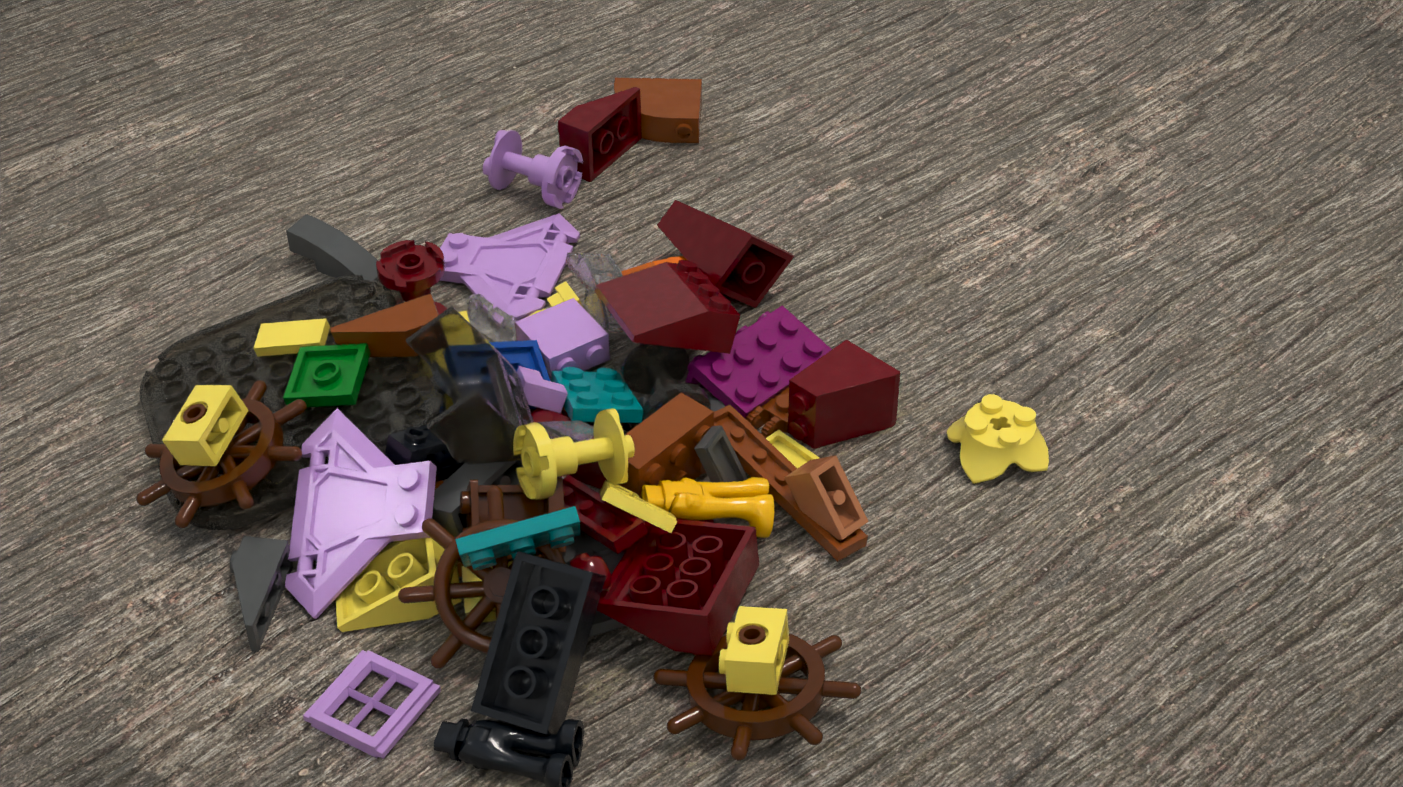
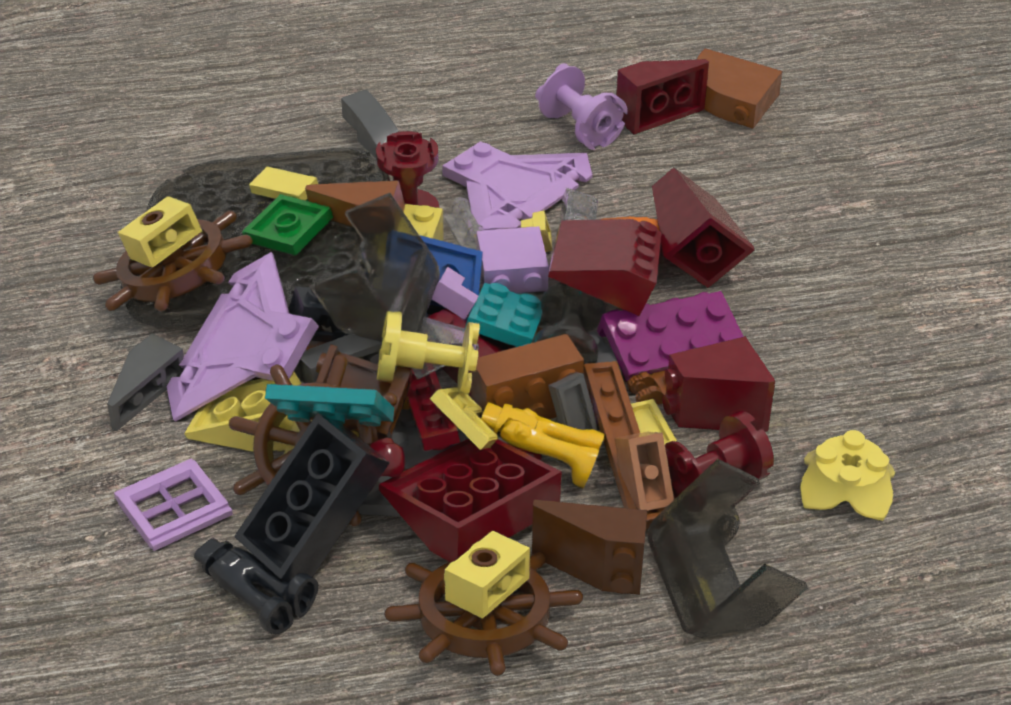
camera: 25 degrees right, 0 degrees up
(825, 584) = (592, 543): none -> reddish brown slope
(894, 450) = (737, 445): none -> dark red piece
(899, 557) = (696, 568): none -> clear smoke windscreen

